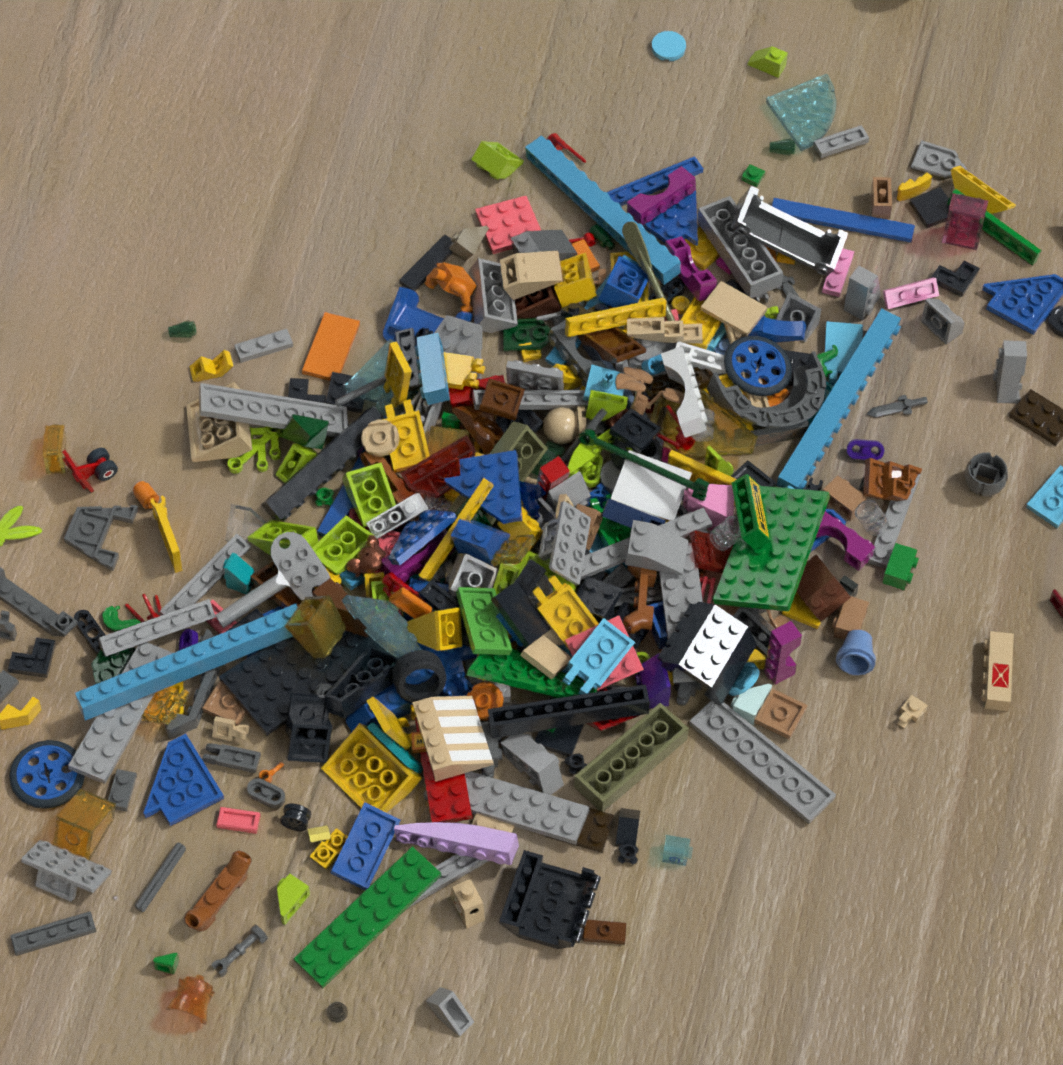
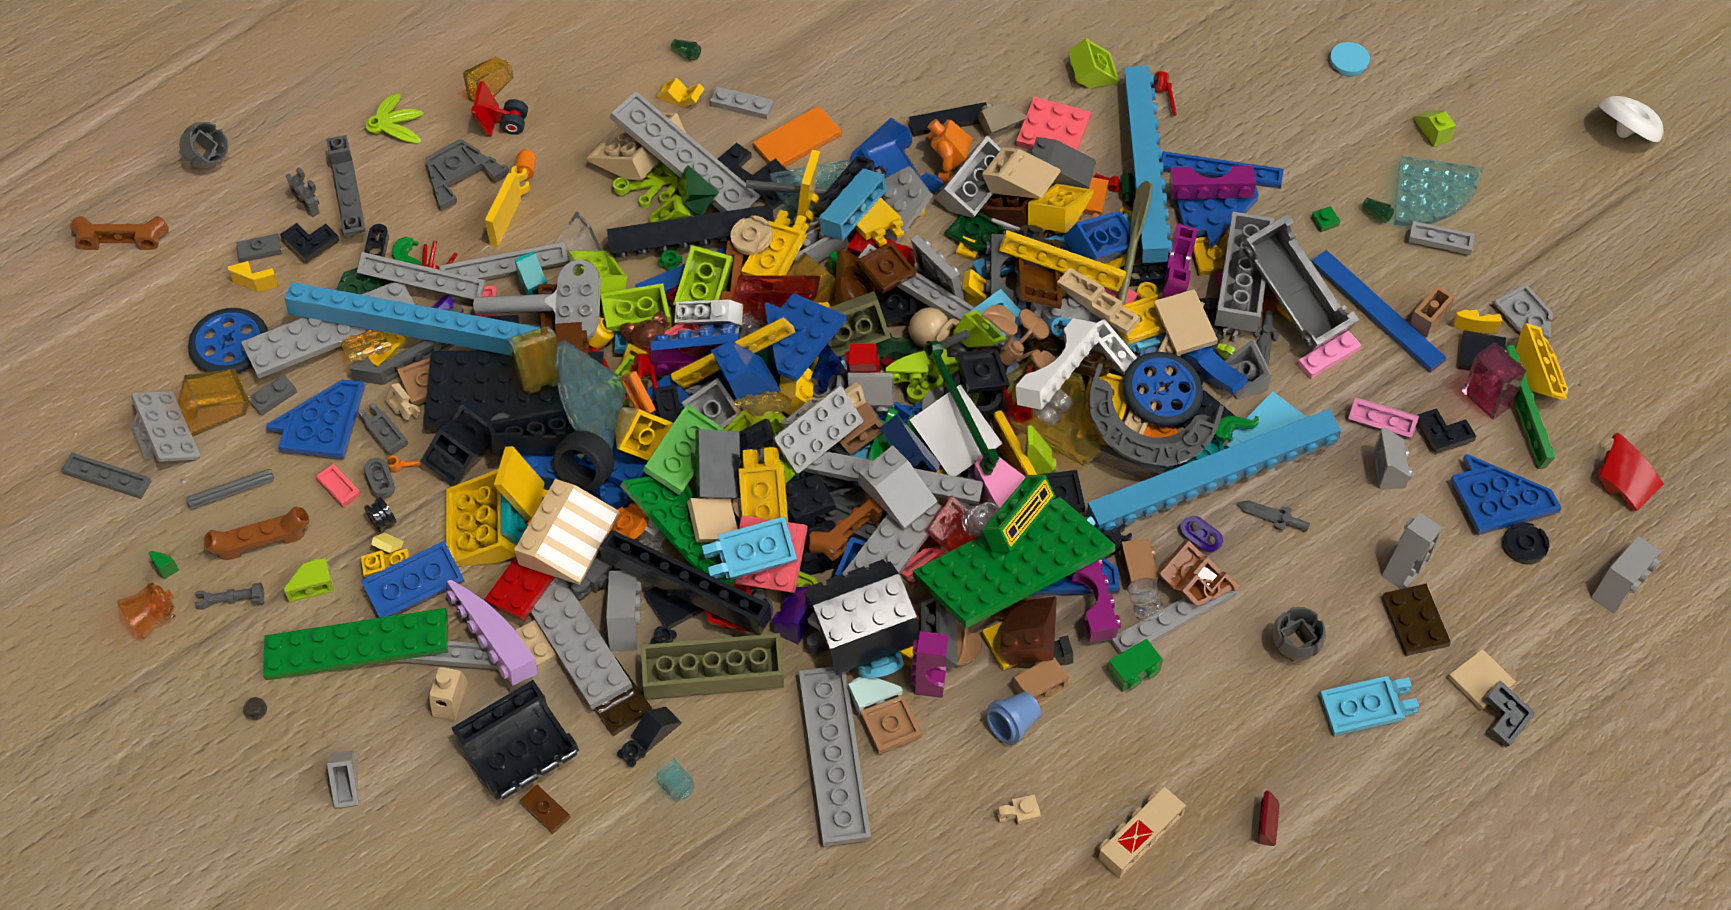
camera: 40 degrees right, 0 degrees up
(862, 293) = (1327, 384): light grey wedge -> none

